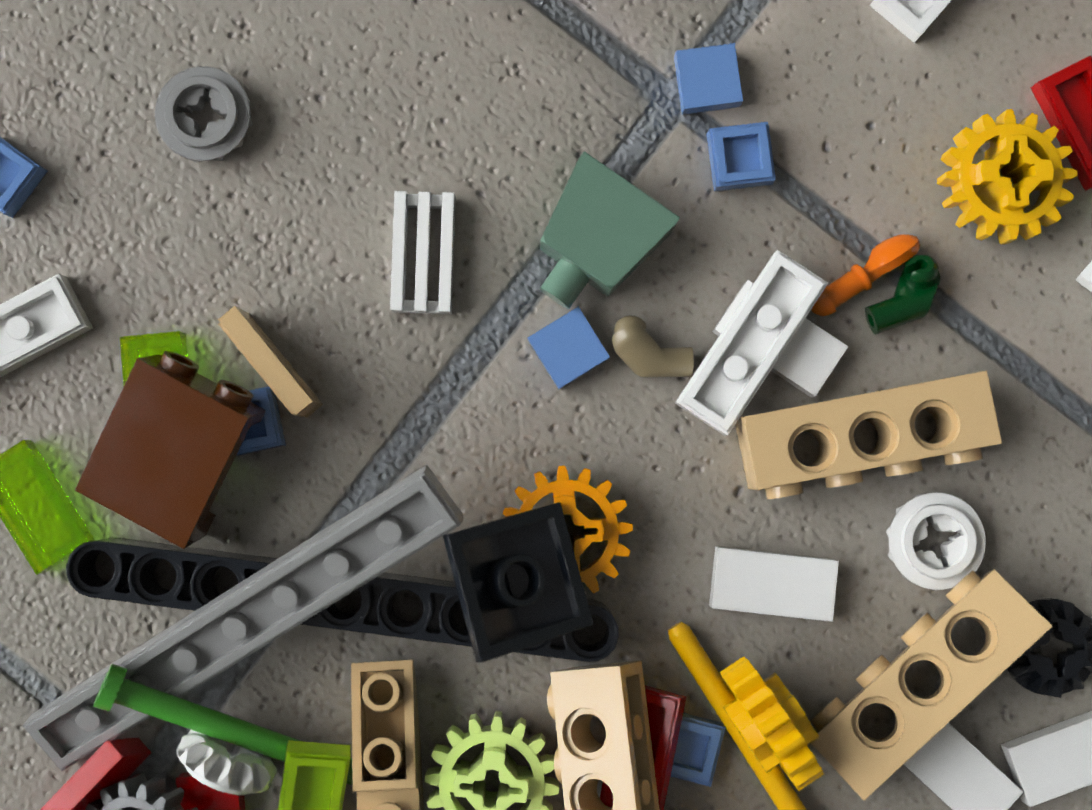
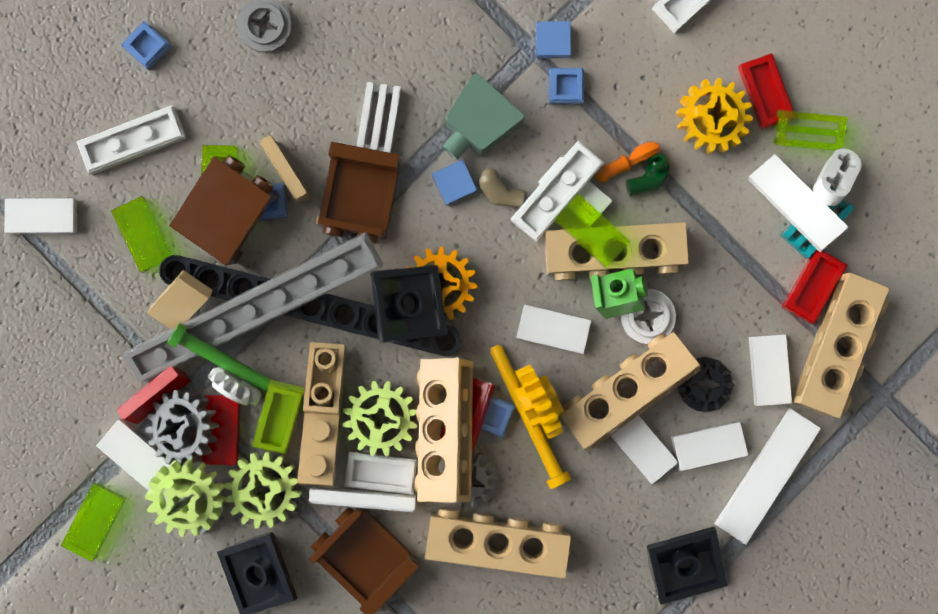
camera: 10 degrees right, 0 degrees up
(110, 621) = (179, 300): none -> tan tile
(404, 387) = (359, 191): none -> reddish brown panel
(826, 407) = (592, 230): none -> clear neon green tile
(874, 531) = (626, 301): none -> bright green brick

